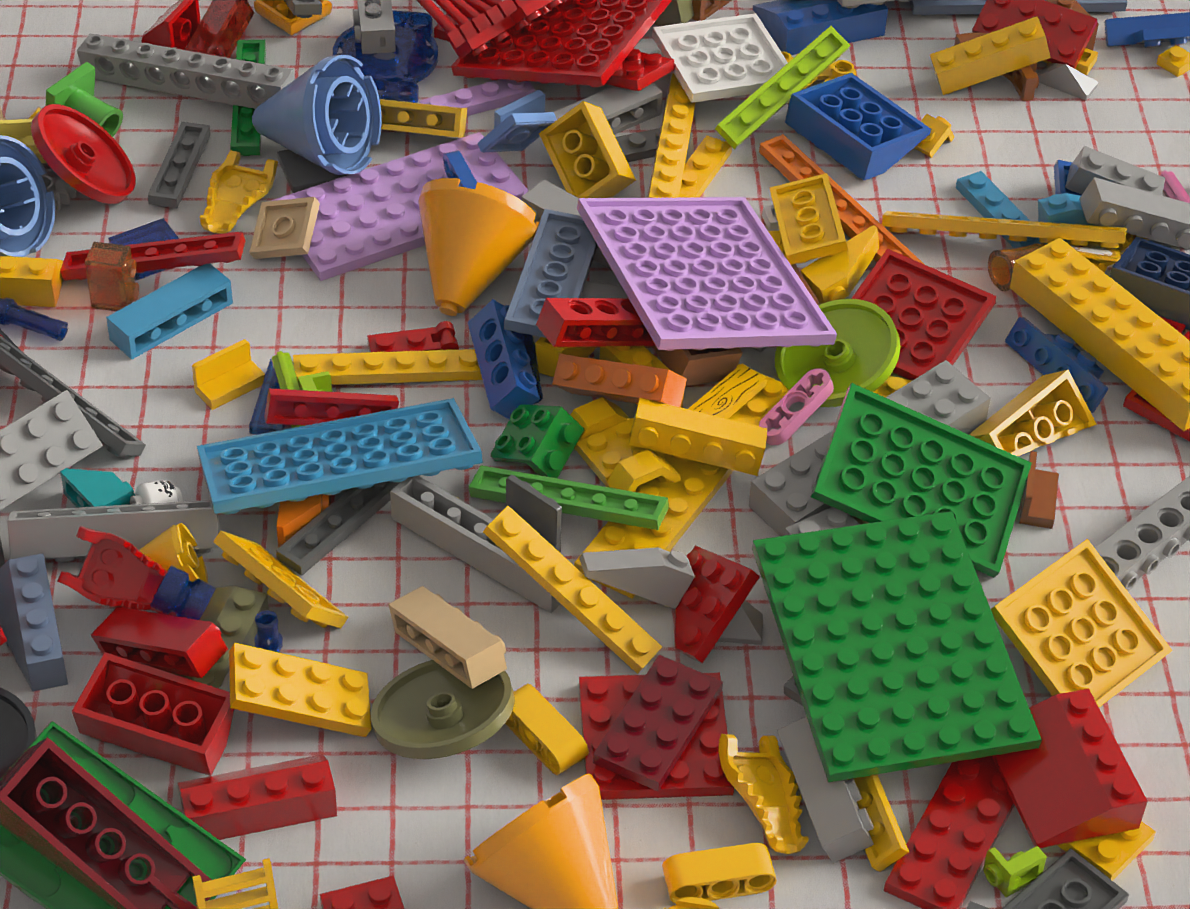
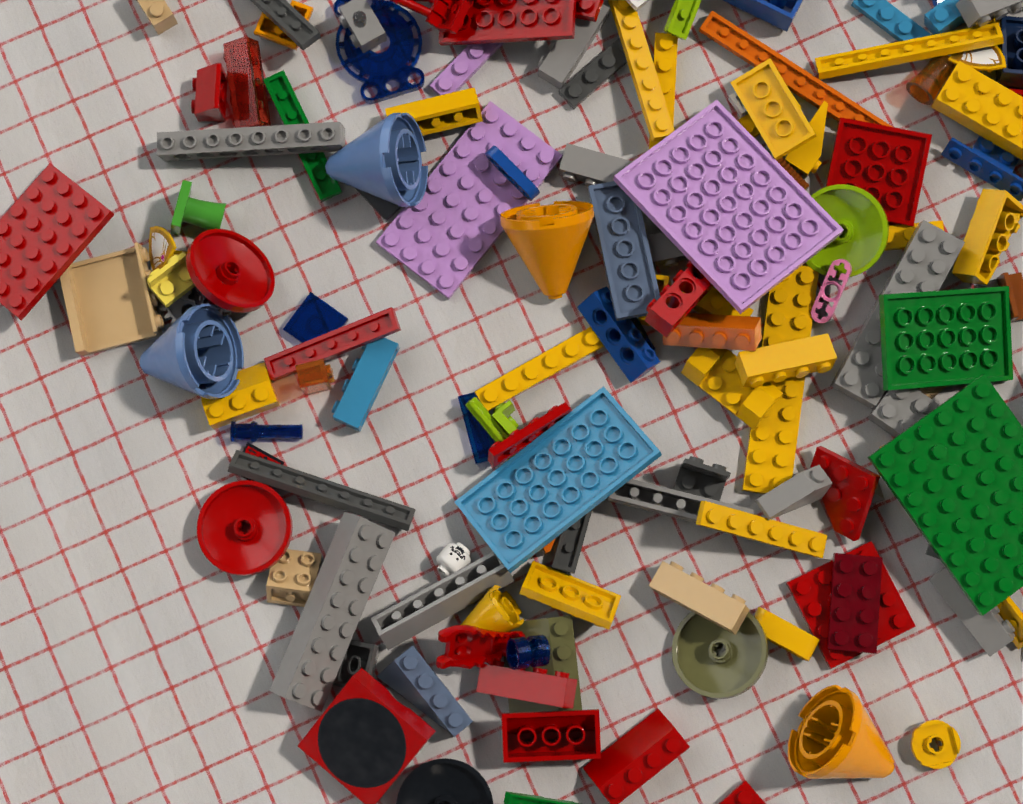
camera: 20 degrees left, 35 degrees up
(95, 488) = (413, 570): teal slope -> none
(179, 165) = (291, 231): dark grey plate -> none
(226, 375) = (439, 426): yellow panel -> none
(234, 191) = (348, 244): yellow animal -> none
(268, 629) = (584, 650): clear blue pin -> none
(284, 228) = (406, 271): tan plate -> none
(299, 690) = (629, 680): yellow plate -> none
(422, 339) = (544, 337): red plate -> none
(516, 132) = (527, 105): medium blue tile -> none
(530, 103) = (510, 69): medium blue tile -> none
(539, 437) = (673, 398): green bracket -> none
(577, 497) = (722, 441): bright green plate -> none
(587, 153) = (586, 103): yellow slope -> none
(720, 872) = (933, 695): yellow beam -> none
(731, 392) = (782, 309): yellow tile -> none
(767, 789) = (937, 622): yellow animal -> none

